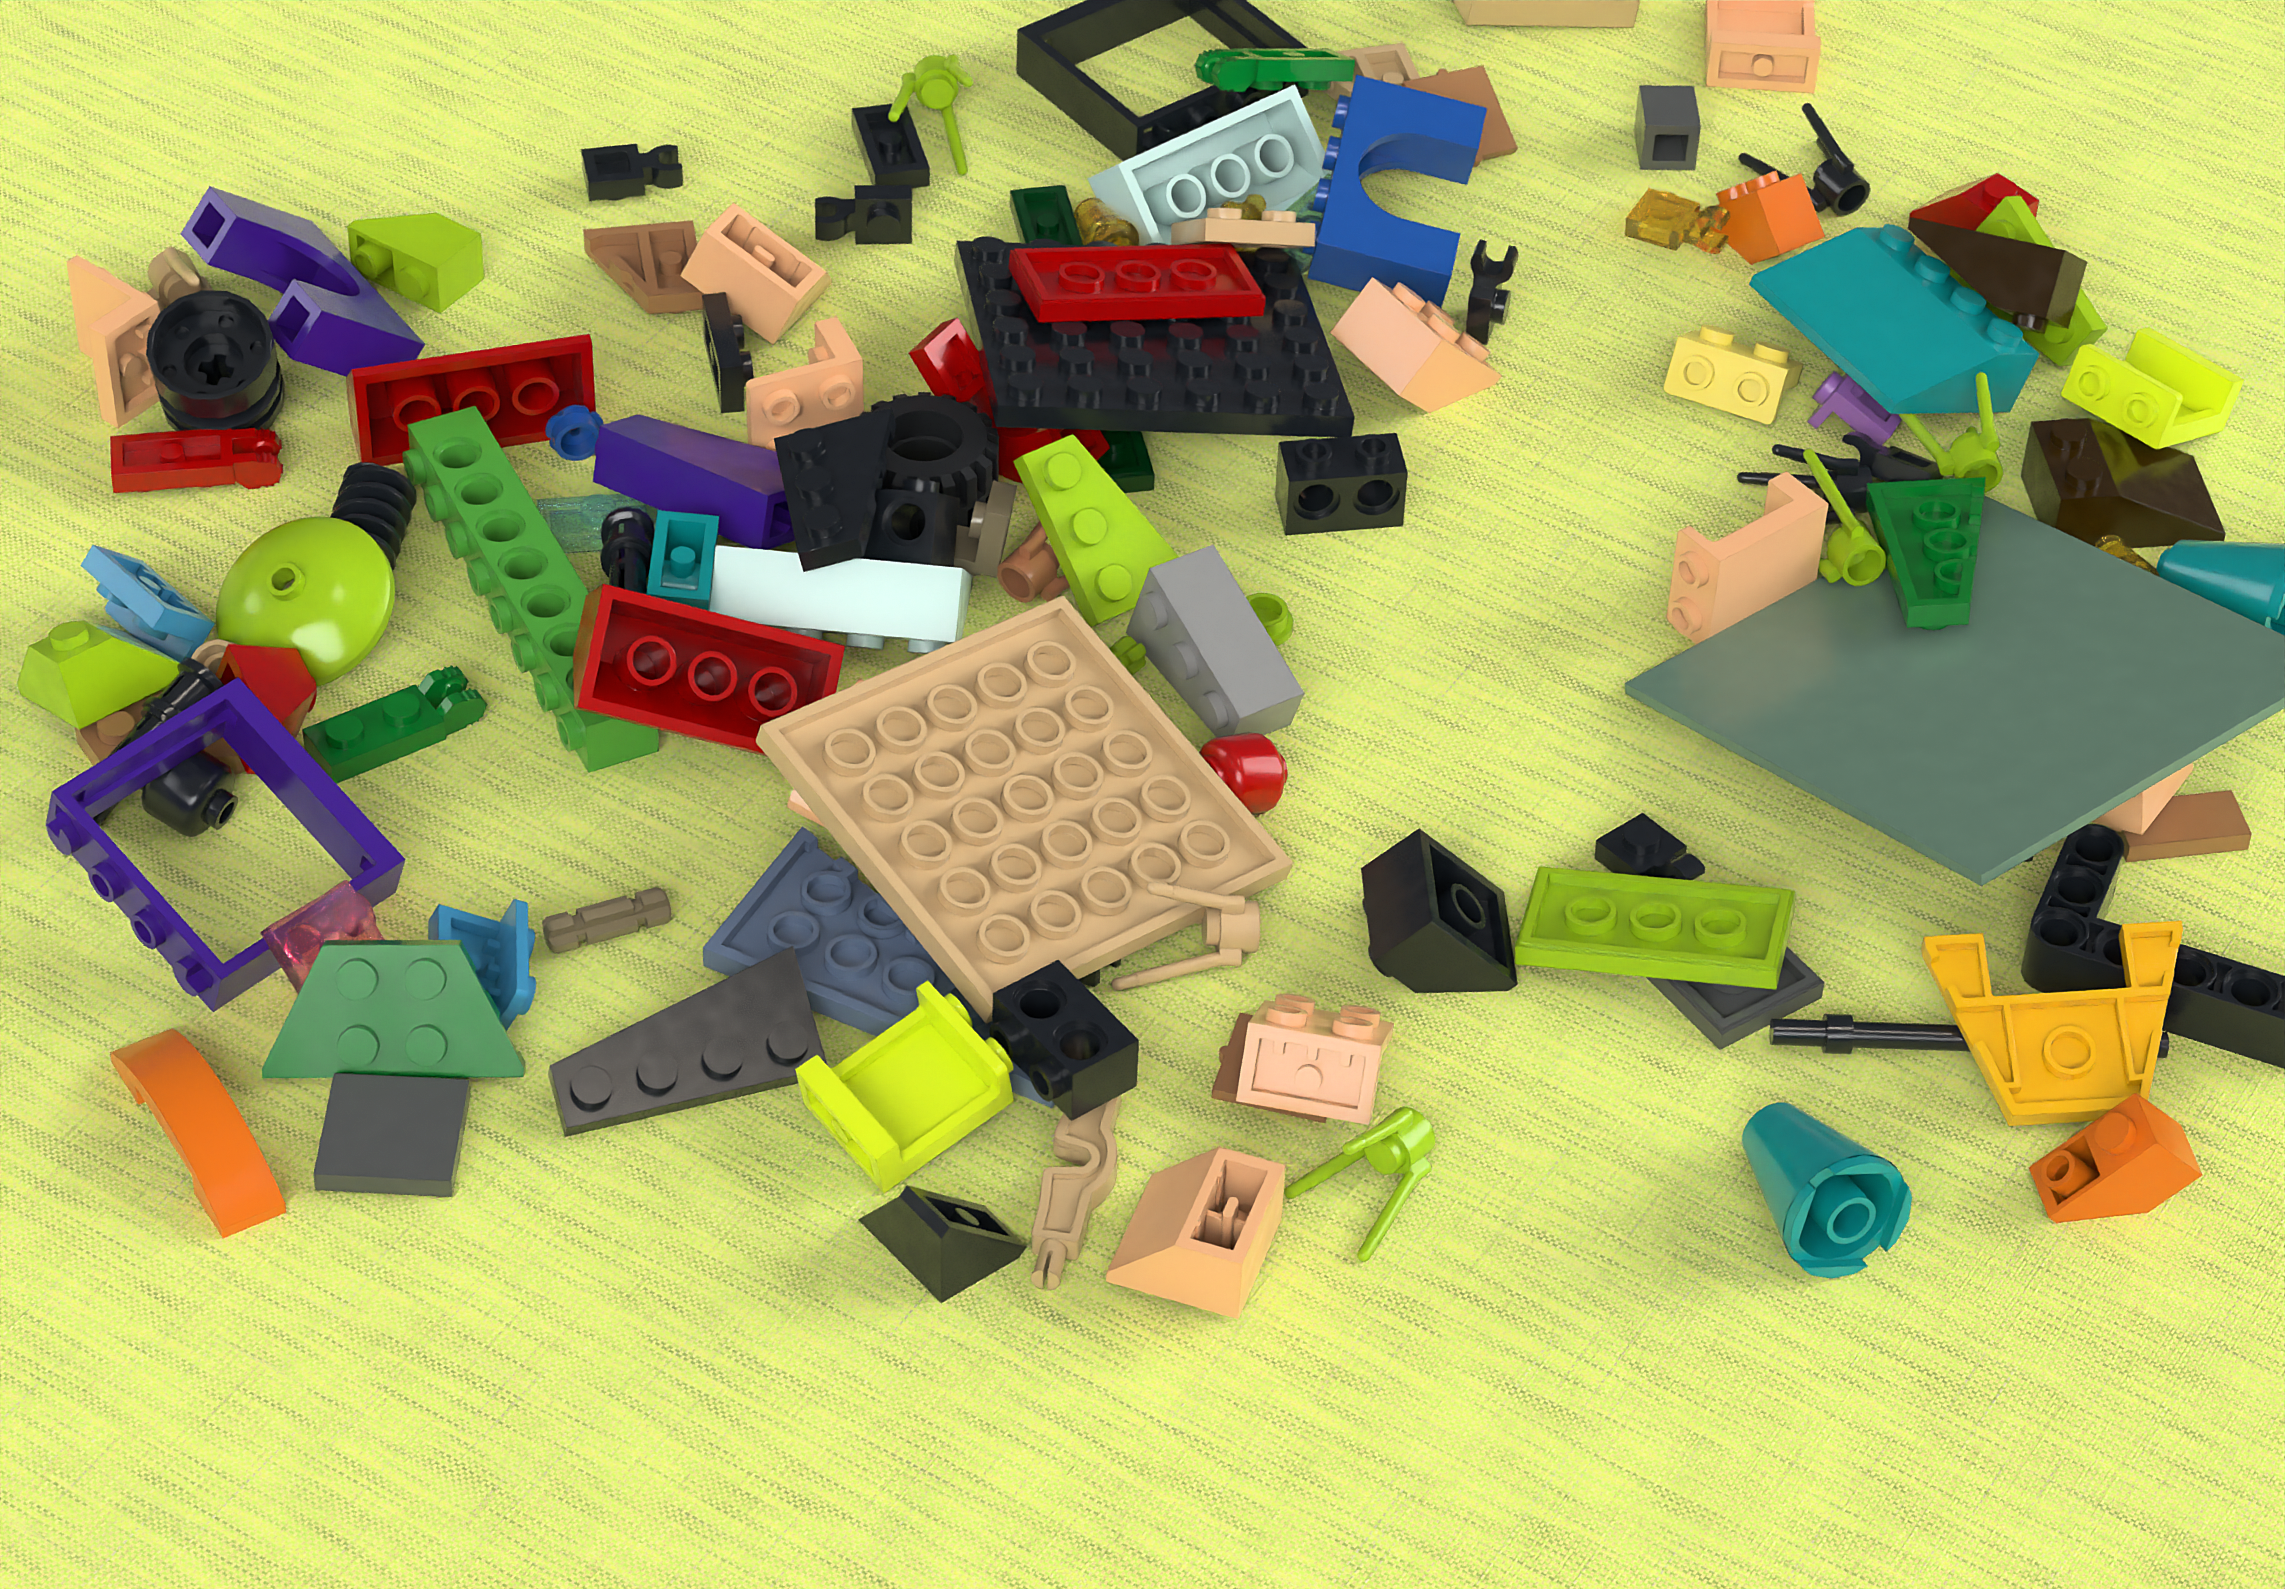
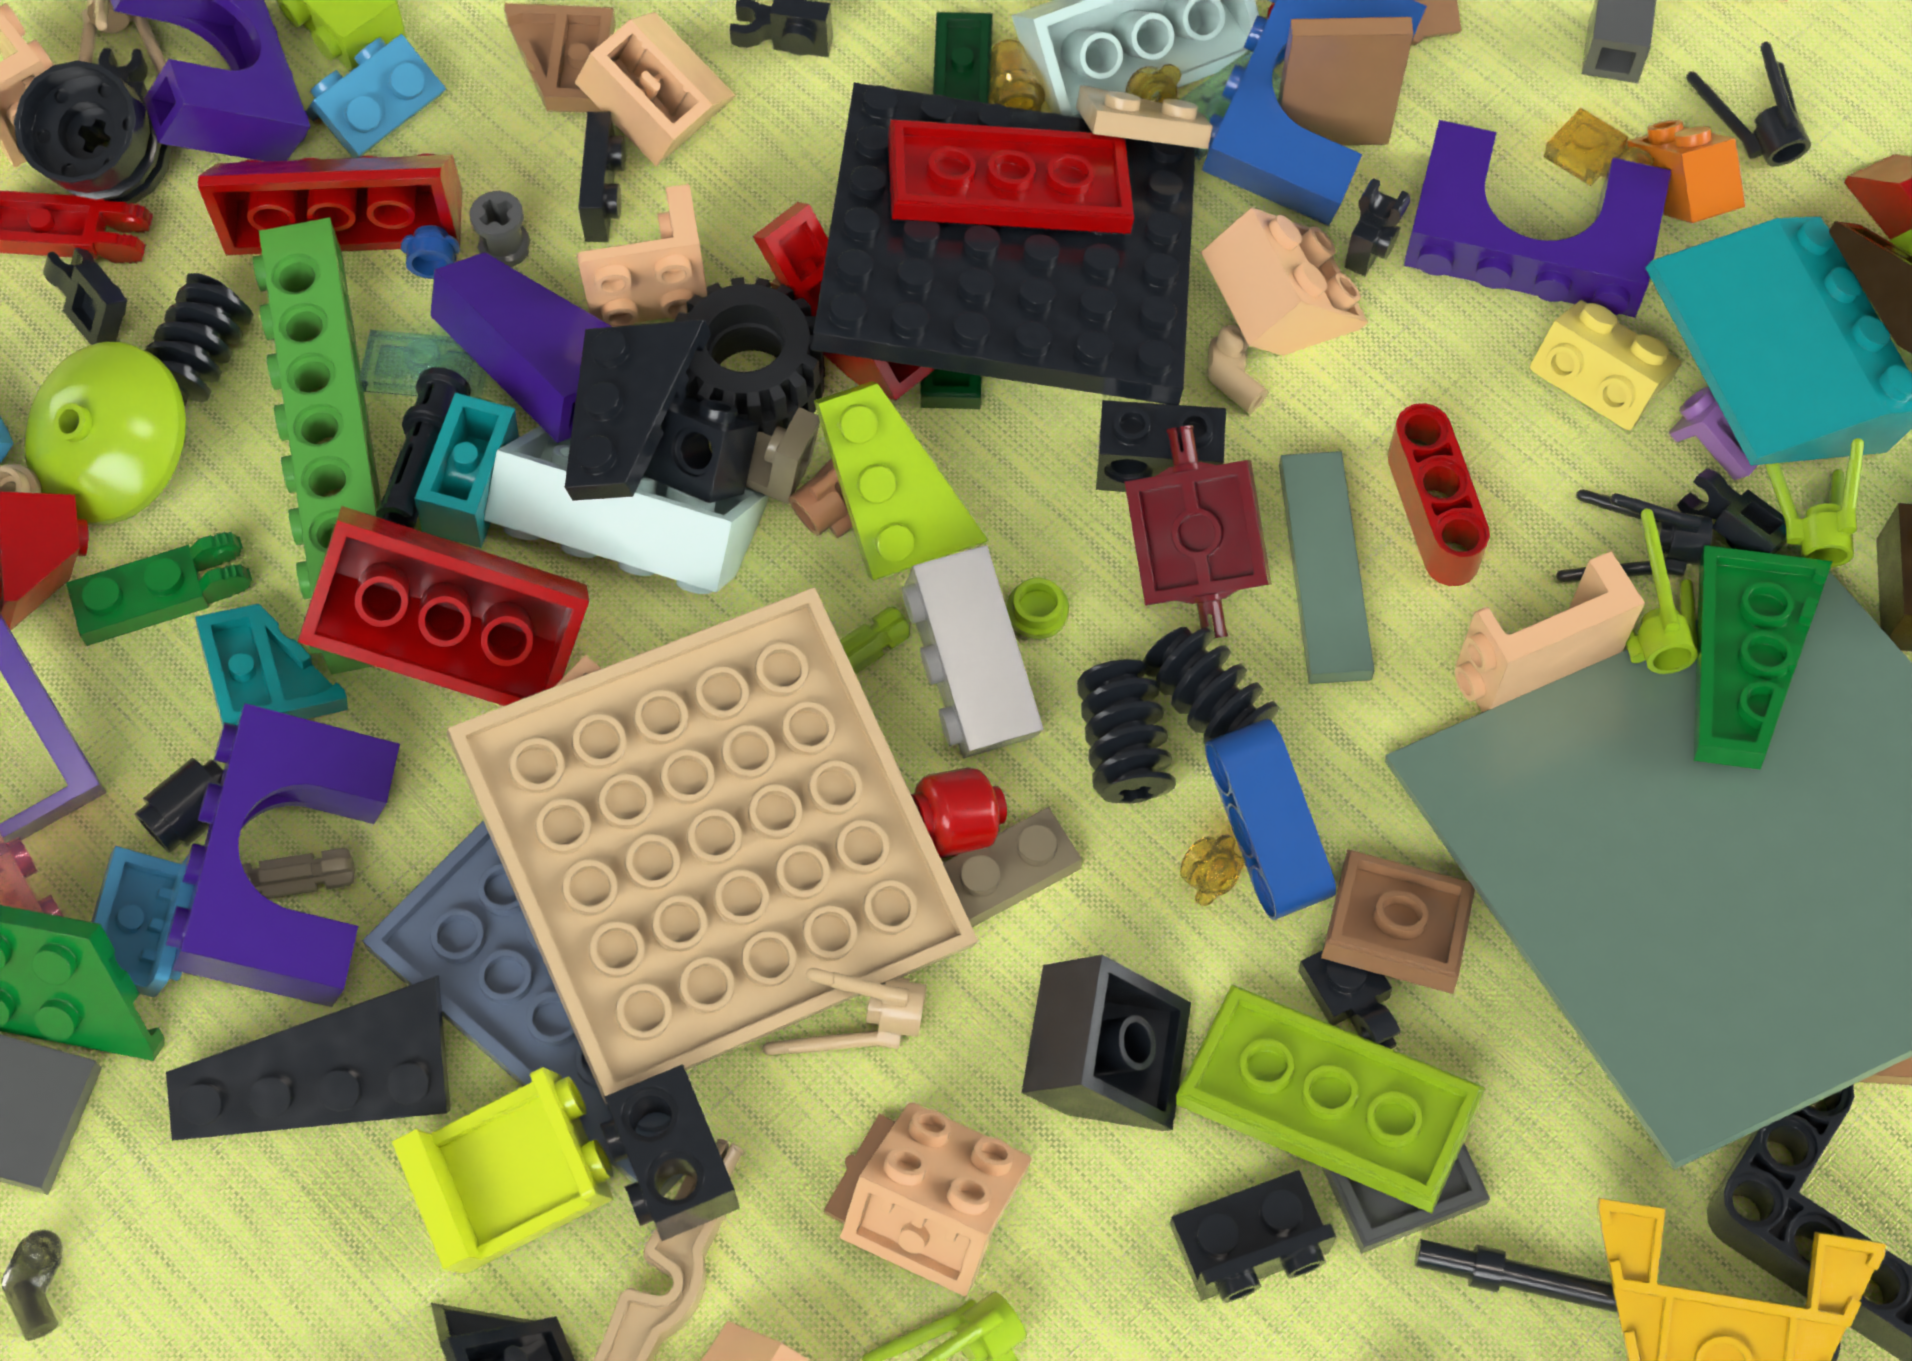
camera: 15 degrees right, 20 degrees up
(244, 501) = (91, 297): none -> black plate
(462, 1251) = (28, 1281): none -> clear smoke arm
(480, 313) = (376, 95): none -> dark azure bracket
(490, 874) = (175, 805): none -> black brick
(524, 772) = (262, 667): none -> teal wing
(572, 933) = (229, 925): none -> dark purple arch
(640, 391) = (498, 221): none -> dark grey bush
(1311, 811) = (1014, 867): none -> dark tan plate
(1379, 418) = (1228, 372): none -> tan arm
(1379, 693) = (1123, 732): none -> black piece
(1399, 533) = (1197, 531): none -> dark red plate
(1430, 163) = (1345, 76): none -> medium nougat tile
(1447, 652) = (1202, 686): none -> black piece
(1491, 783) = (1211, 867): none -> clear yellow plate
(1523, 558) = (1326, 568): none -> sand green tile
(1536, 730) = (1270, 819): none -> blue beam
(1574, 296) = (1465, 240): none -> dark purple arch
(1610, 485) = (1431, 518): none -> red beam
(1618, 1045) = (1252, 1237): none -> black bracket
(1677, 794) = (1399, 921): none -> medium nougat tile

